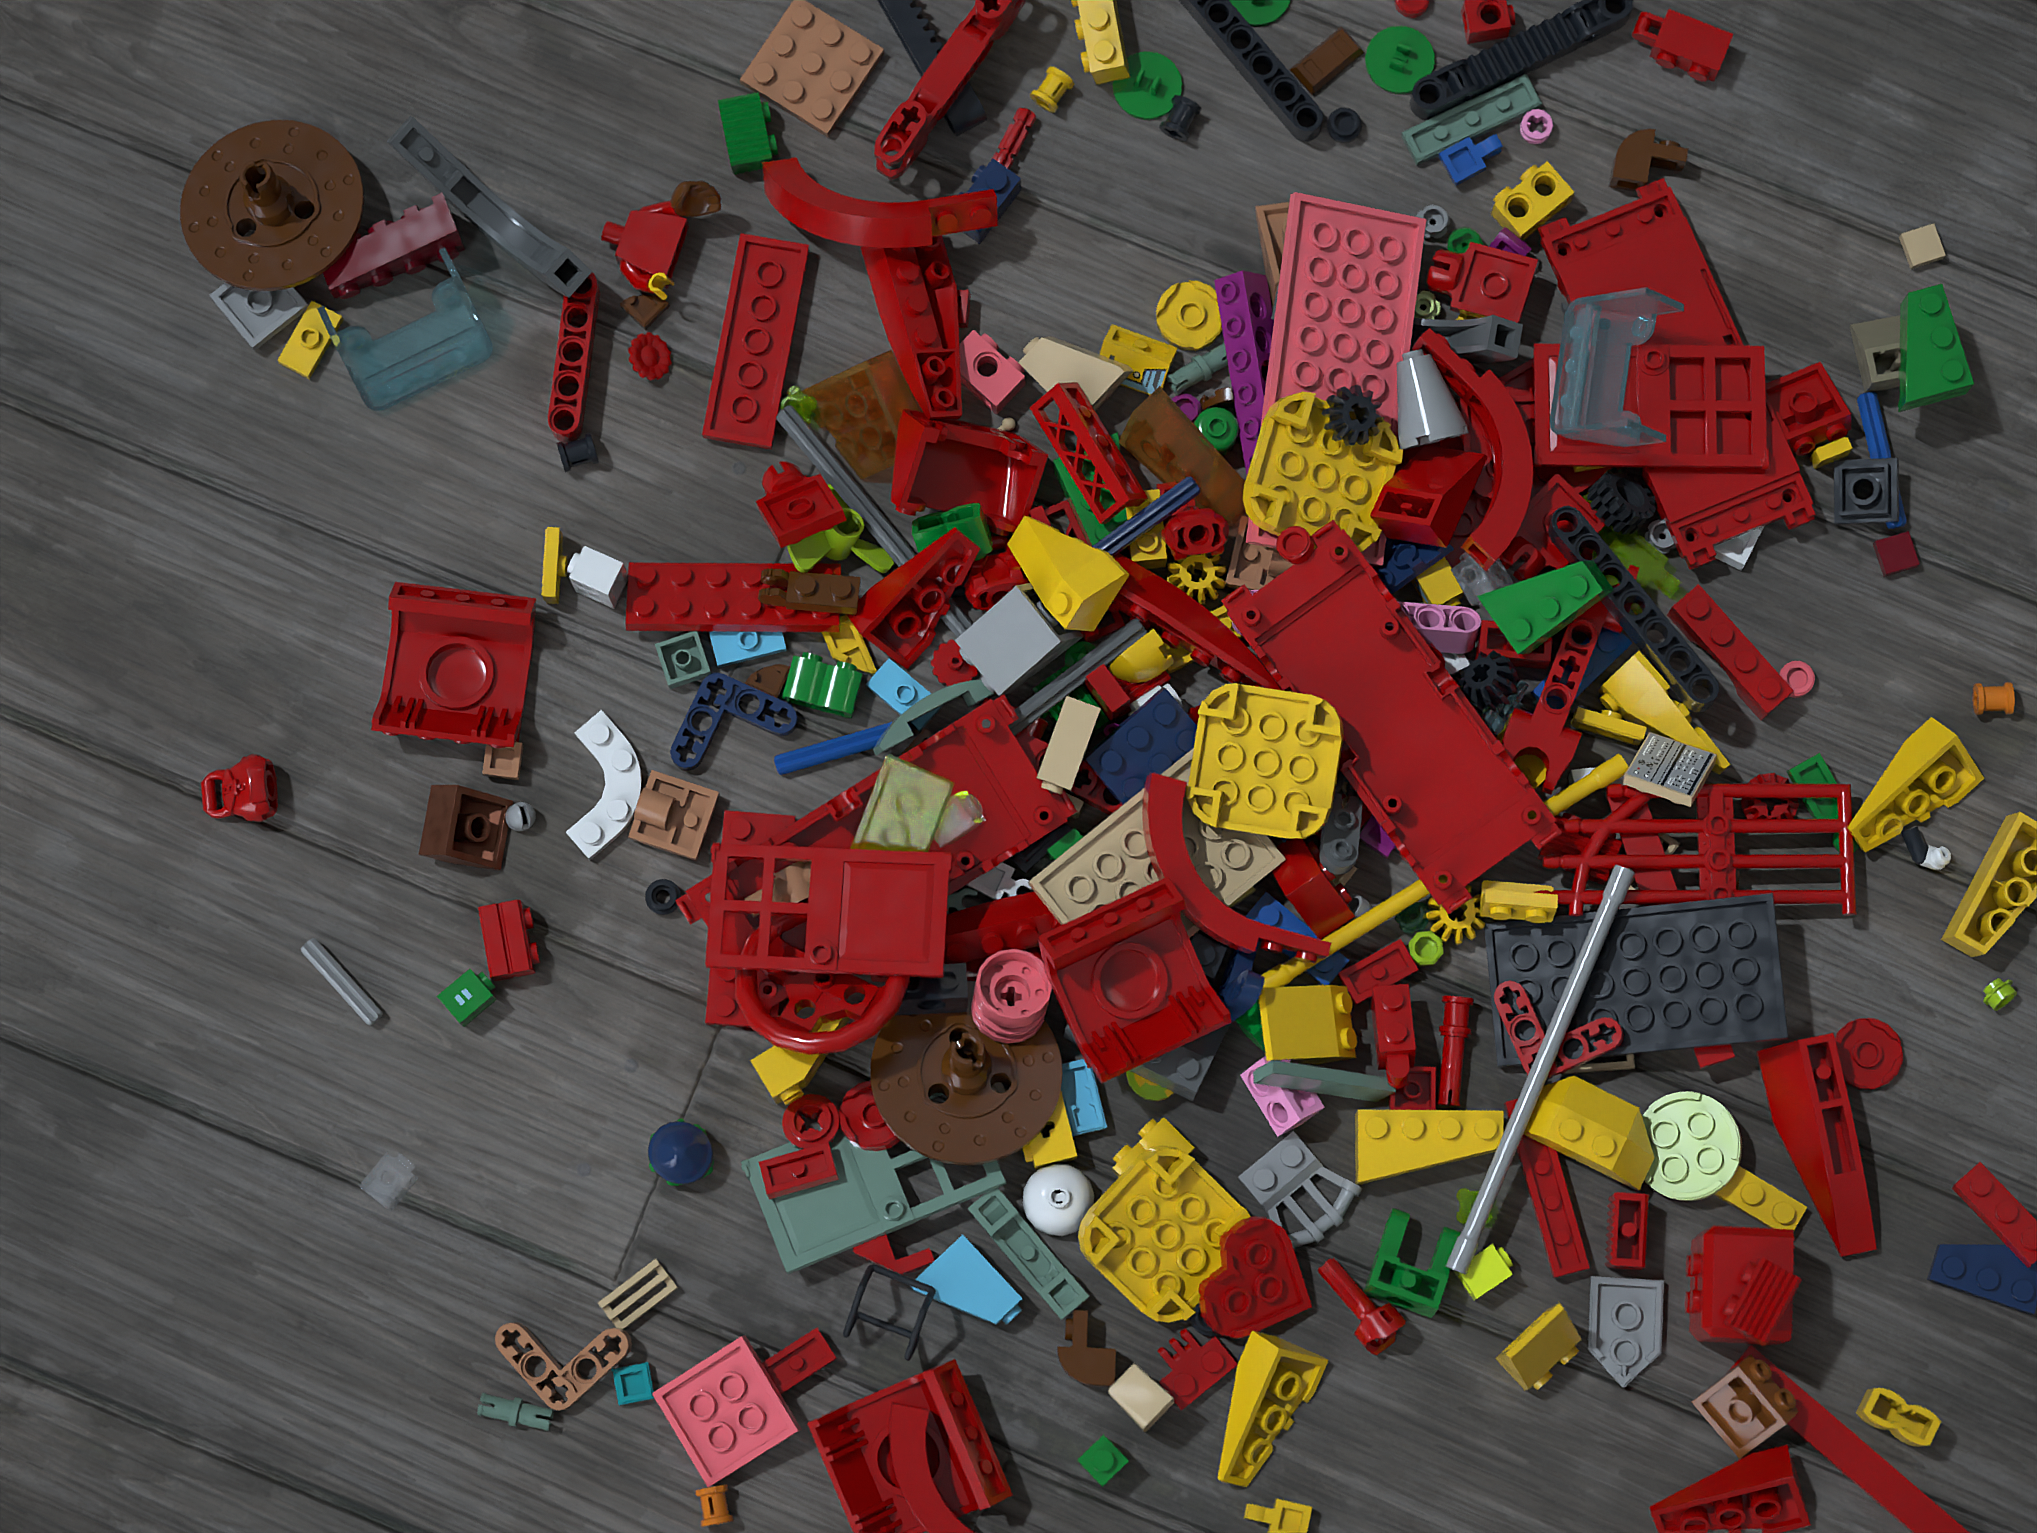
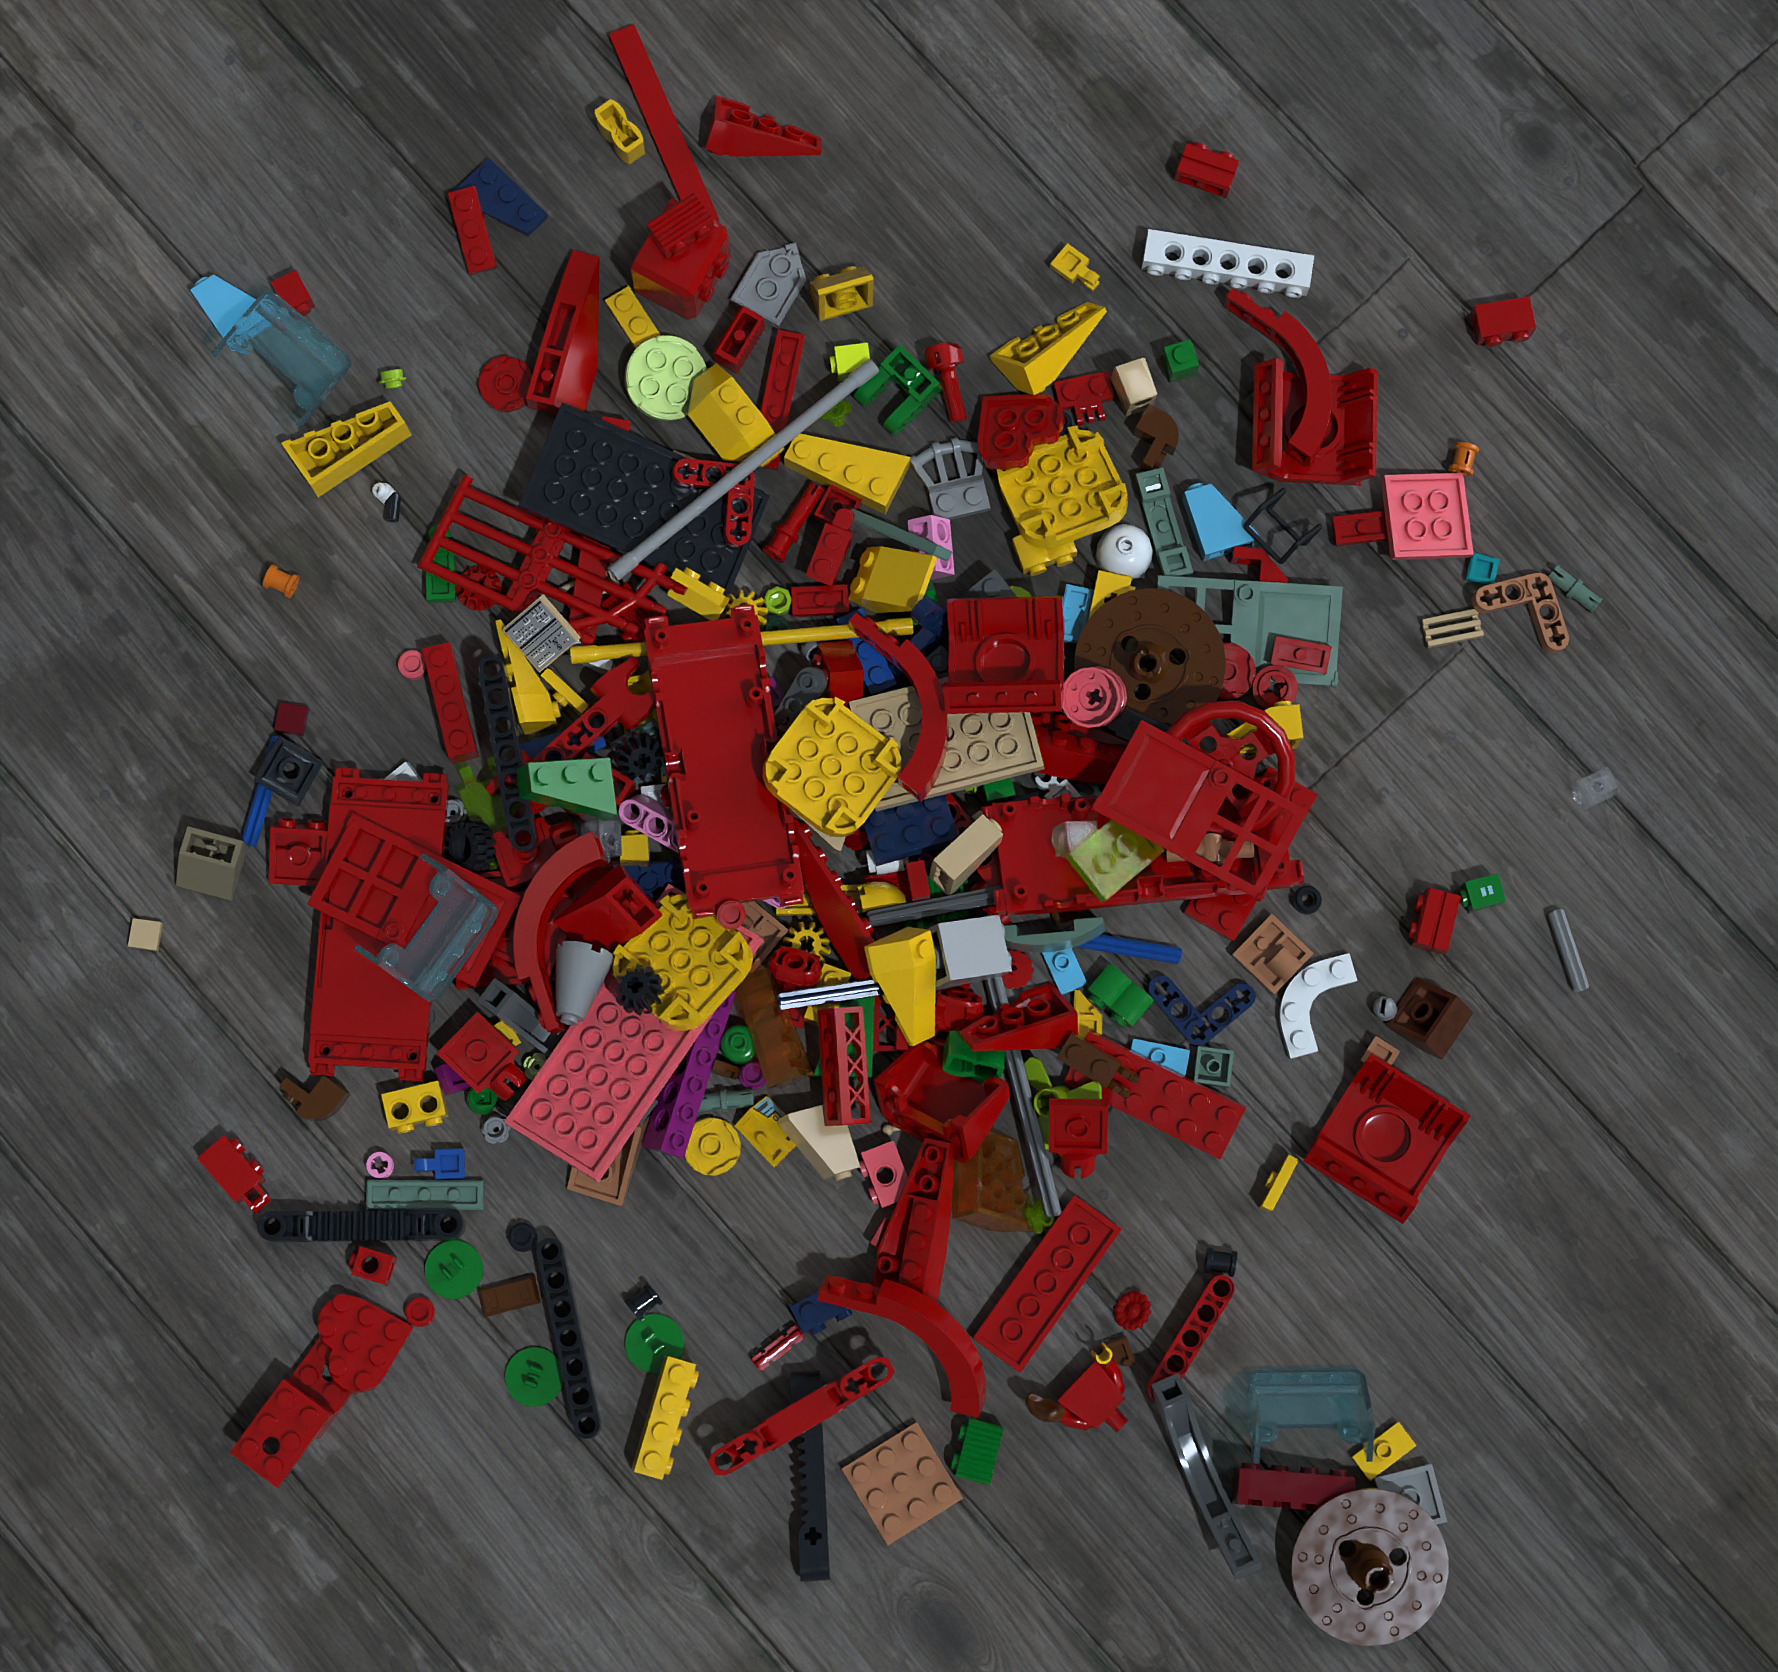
camera: 160 degrees left, 0 degrees up
(247, 790) = (1579, 1123): red piece -> none
(597, 576) = (1250, 1154): white brick -> none
(680, 1153) = (1378, 710): dark blue hair -> none
(770, 679) = (1156, 1022): reddish brown tile -> none
(1052, 89) = (729, 1372): yellow bush -> none
(1746, 1405) = (720, 186): dark orange plate -> none
(1830, 452) = (298, 812): yellow tile -> none
(1923, 776) = (359, 552): yellow wedge -> none
(1931, 351) = (189, 837): green wedge -> none

